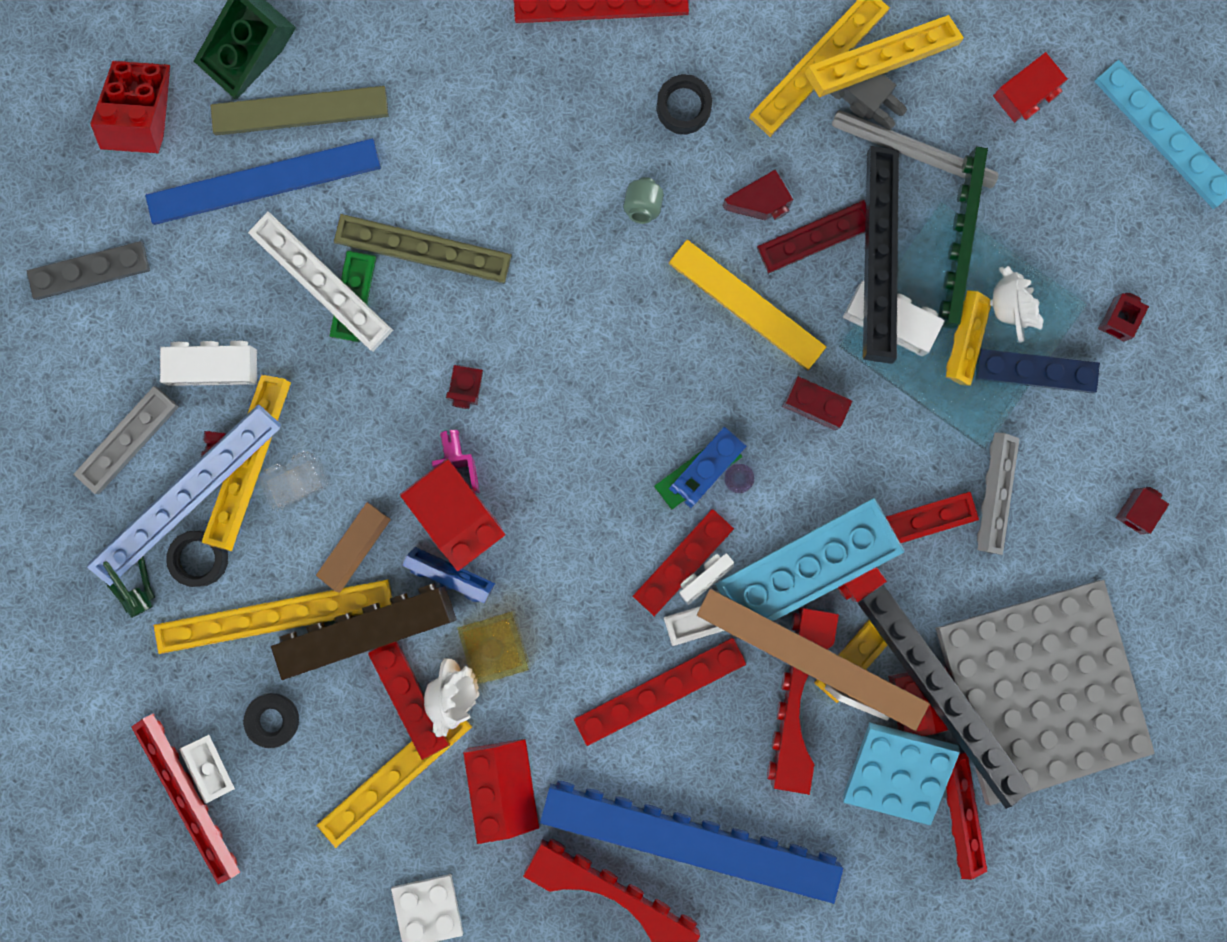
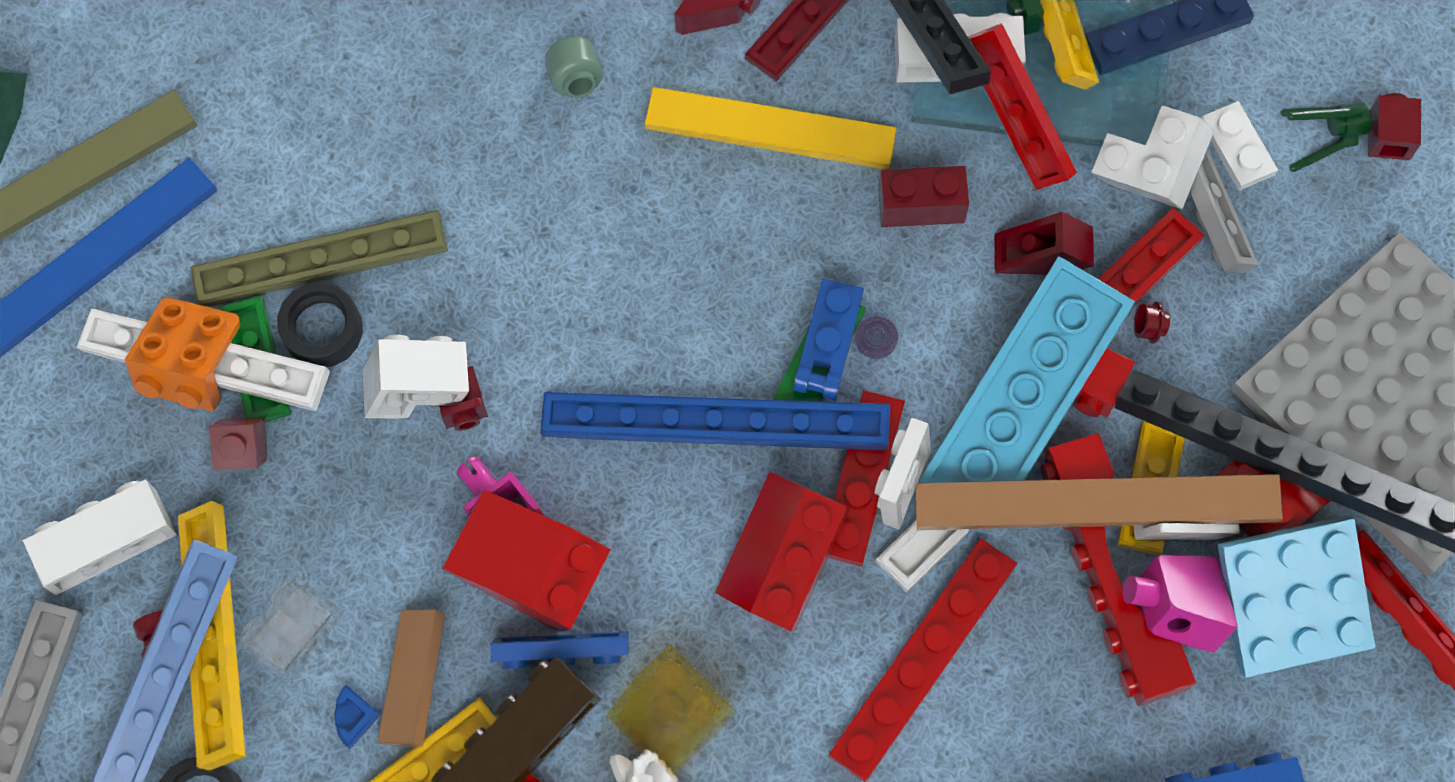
camera: 25 degrees left, 15 degrees down
(309, 271) = (180, 353): none -> orange bracket
(309, 551) = (353, 716): none -> blue tile
(316, 349) = (238, 443): none -> dark red brick
(401, 272) = (313, 294): none -> black tyre
(441, 363) = (412, 374): none -> white brick
(608, 587) = (782, 551): none -> red slope
(612, 482) = (716, 421): none -> blue tile
(830, 743) = (1184, 600): none -> dark pink torso
(874, 475) = (1037, 244): none -> dark red slope
(908, 381) = (1022, 110): none -> red plate
(916, 560) = (1151, 322): none -> dark red plate
(976, 466) = (1163, 166): none -> white brick
(1037, 469) = (1239, 146): none -> white plate
(1113, 488) = (1342, 120): none -> dark green plant

